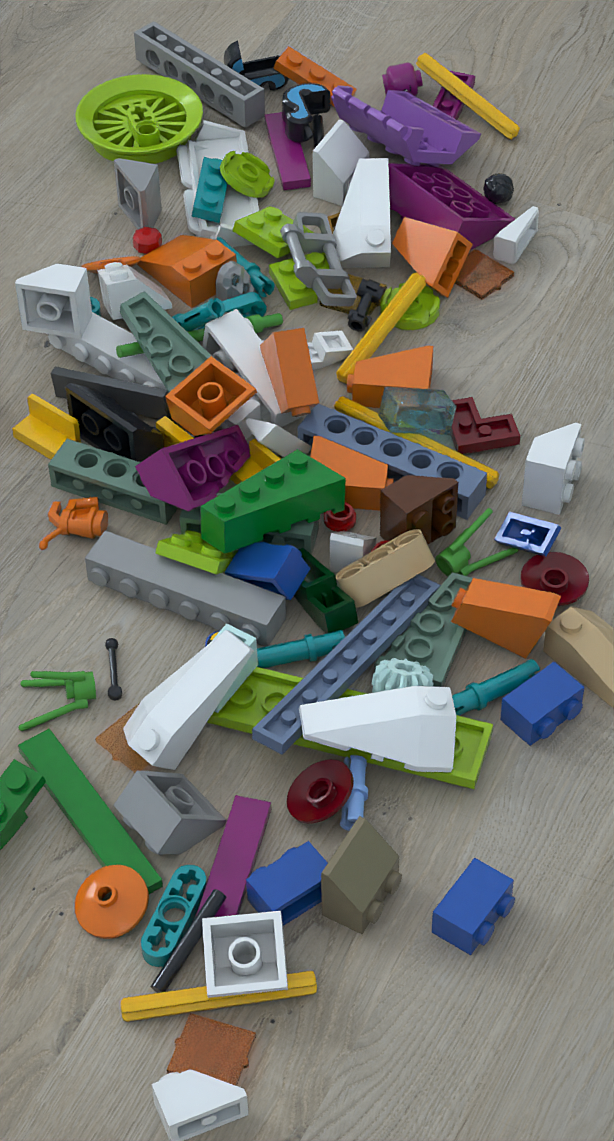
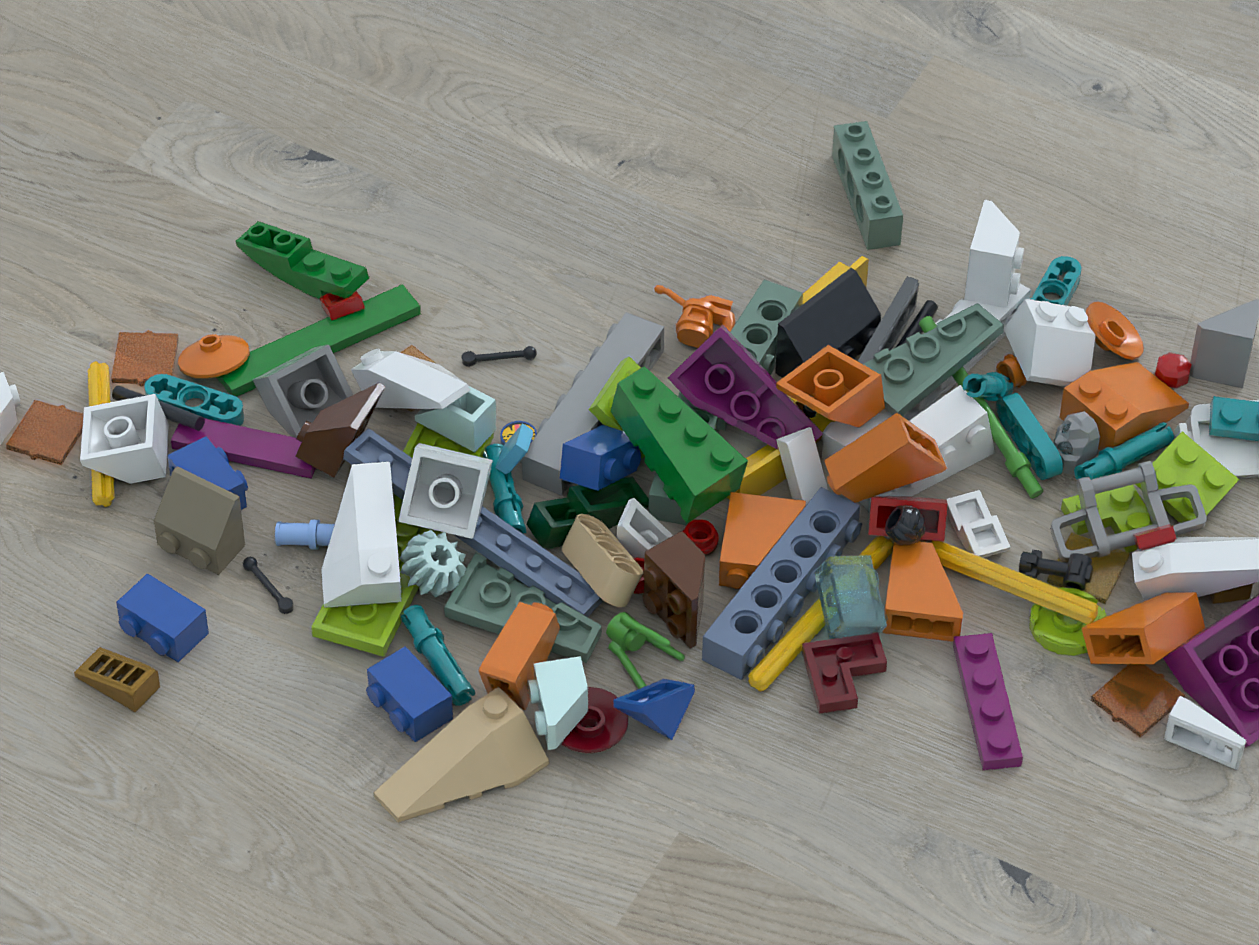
camera: 90 degrees right, 0 degrees up
(48, 797) = (338, 307): none -> red tile
(77, 685) = (469, 325): bright green plant -> none
(103, 971) = (143, 356): none -> clear orange piece
(241, 758) = (336, 429): none -> reddish brown slope
(262, 627) = (514, 449): none -> medium azure tile
(320, 791) = (310, 503): dark red dish -> none
(330, 372) = (932, 509): none -> red slope
(331, 658) = (445, 490): none -> white slope
(346, 238) = (1154, 537): none -> red tile
(350, 366) = (905, 525): none -> black piece
(435, 816) = (285, 604): none -> black hinge
(494, 350) = (987, 701): none -> magenta plate
(551, 469) = (747, 720): white slope -> none
(555, 919) = (131, 696): none -> pearl gold slope
(557, 577) = (561, 698): none -> light aqua slope

